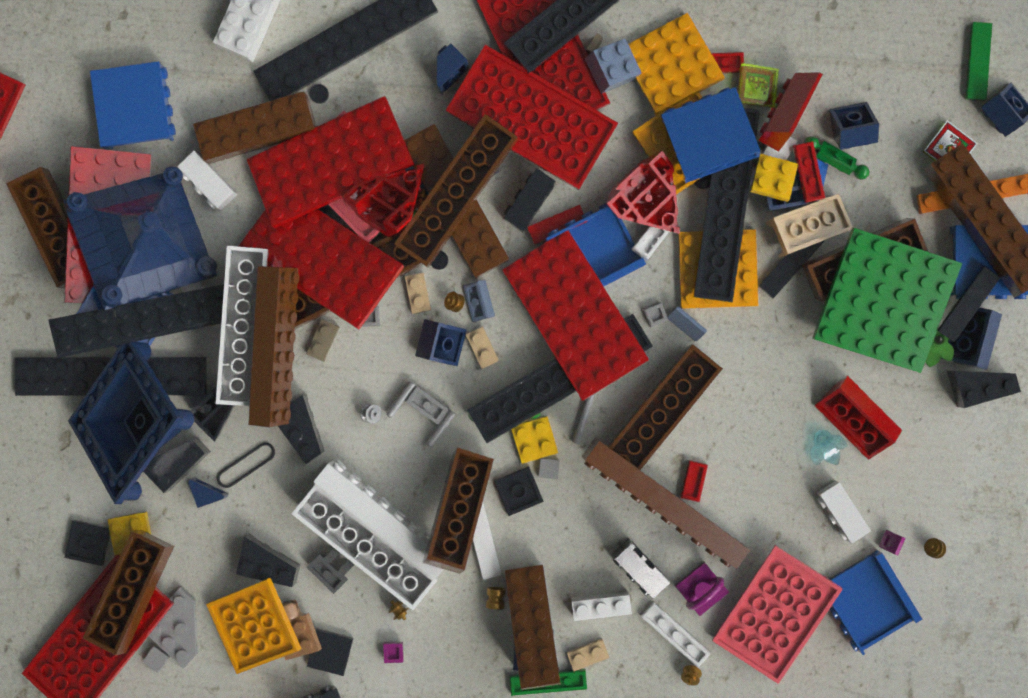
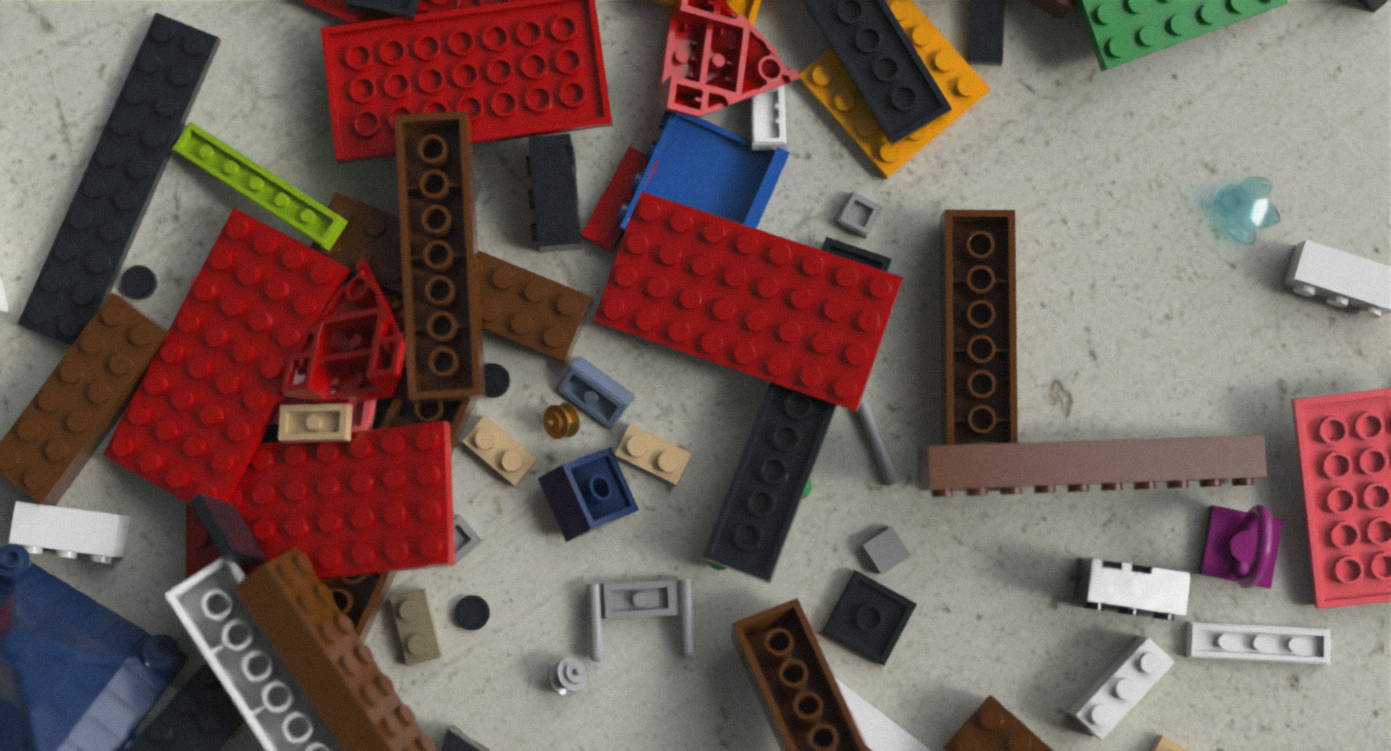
camera: 30 degrees left, 5 degrees down
(274, 238) = (228, 531): none -> black tile
(347, 220) = (315, 423): none -> tan plate
(351, 353) = (472, 612): none -> black piece
(404, 94) = (260, 186): none -> lime tile
(450, 67) = (297, 95): dark blue slope -> none
(534, 439) = (832, 525): yellow plate -> none
(687, 324) = (913, 191): sand blue slope -> none
(691, 675) = (1330, 683): pearl gold wheel -> none
(694, 481) = (1103, 403): red tile -> none
(858, 418) = (1256, 132): red slope -> none

